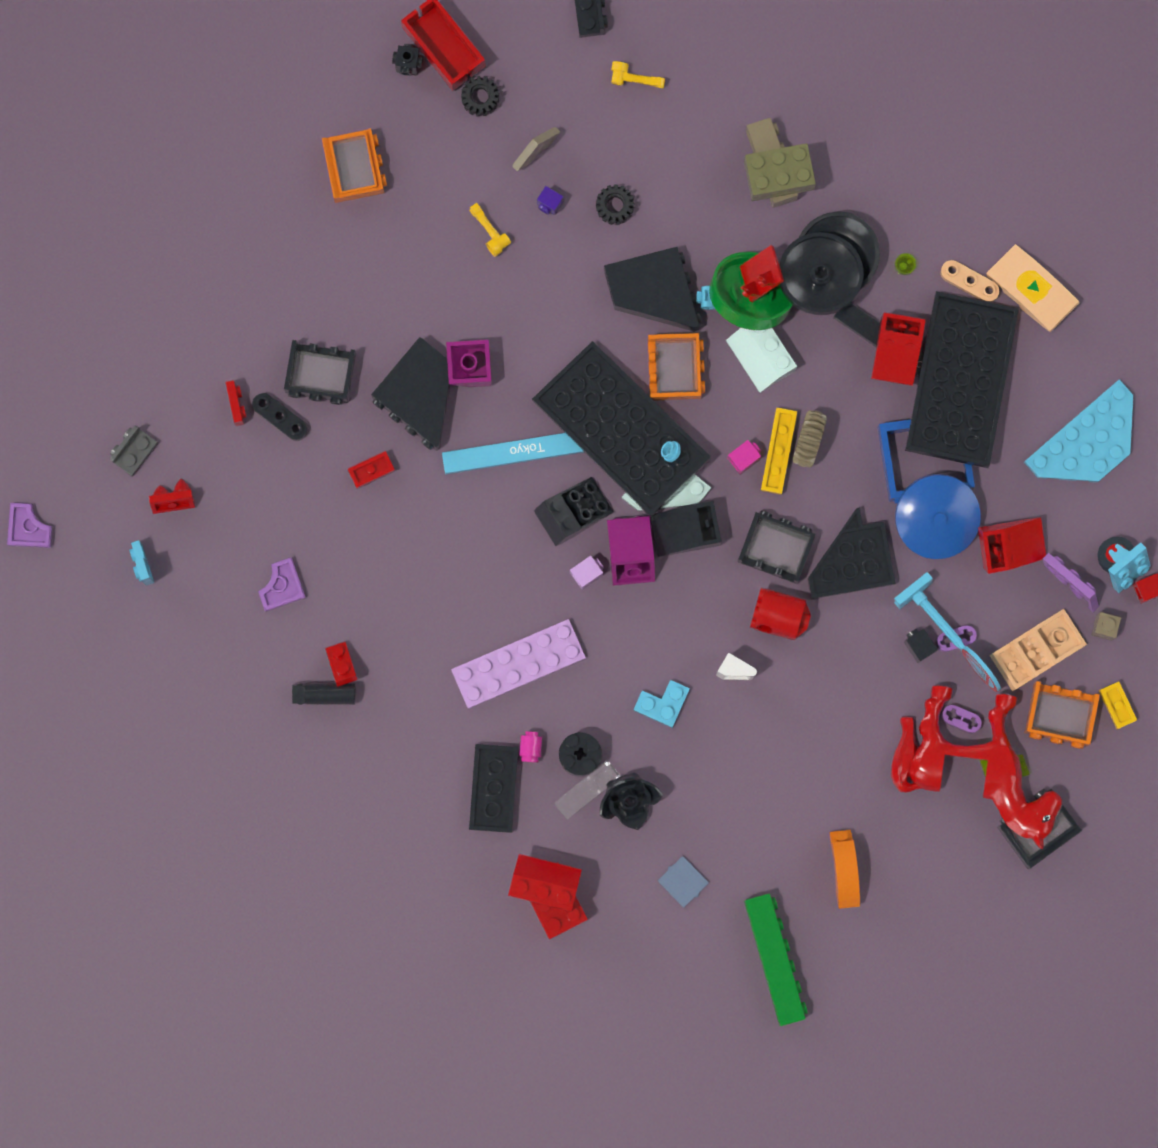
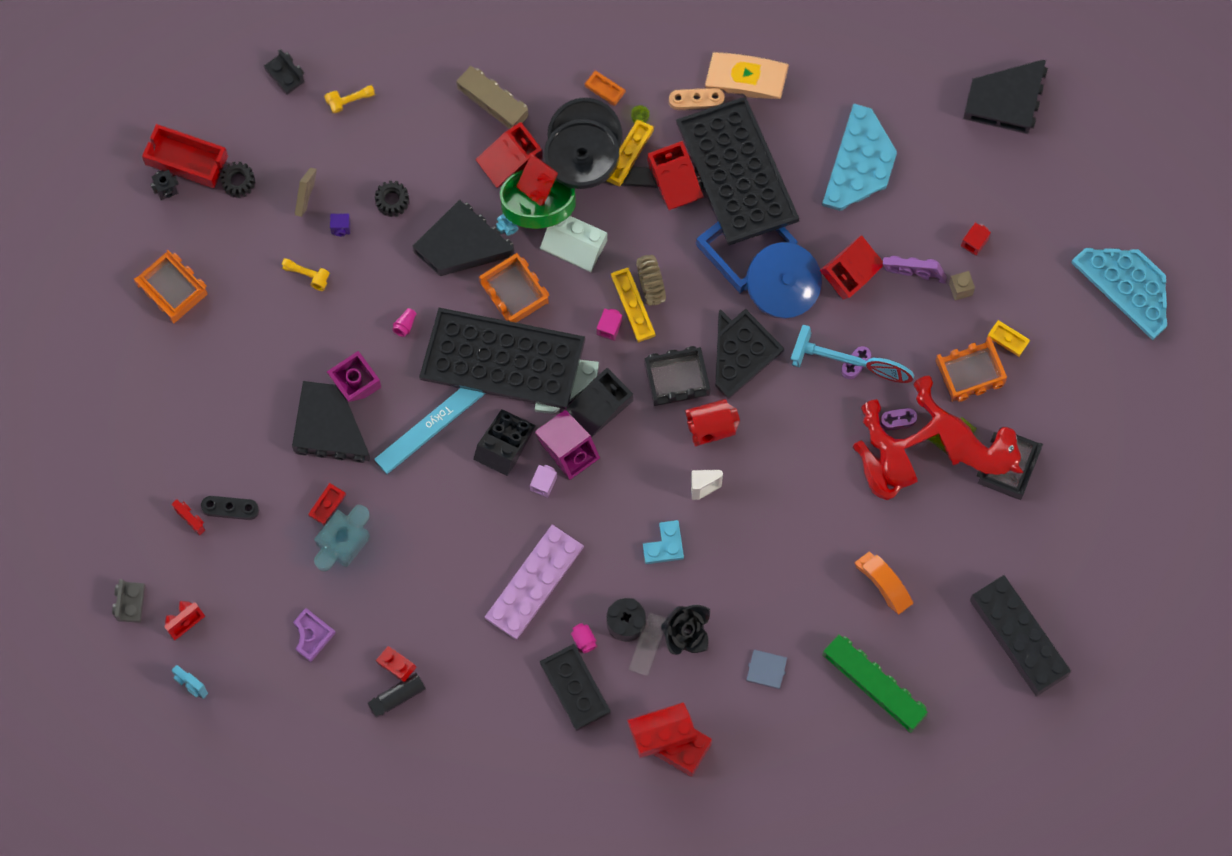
camera: 30 degrees left, 10 degrees down
(25, 529) = (79, 712): medium lavender tile -> none
(319, 373) = (241, 456): window -> none
(364, 512) = (342, 538): none -> clear light blue brick
(549, 337) = (404, 323): none -> dark pink cone
(670, 451) = (551, 349): medium azure plate -> none
(752, 229) = (509, 154): none -> red slope
(779, 172) = (503, 98): olive brick -> none
(873, 295) = (630, 150): none -> yellow plate
(887, 217) = (604, 88): none -> orange plate
(920, 644) = (832, 382): black brick -> none
(940, 1000) = (1020, 635): none -> black brick
(1038, 650) = (922, 333): light nougat slope -> none
(1123, 561) = (943, 231): medium azure plate -> none

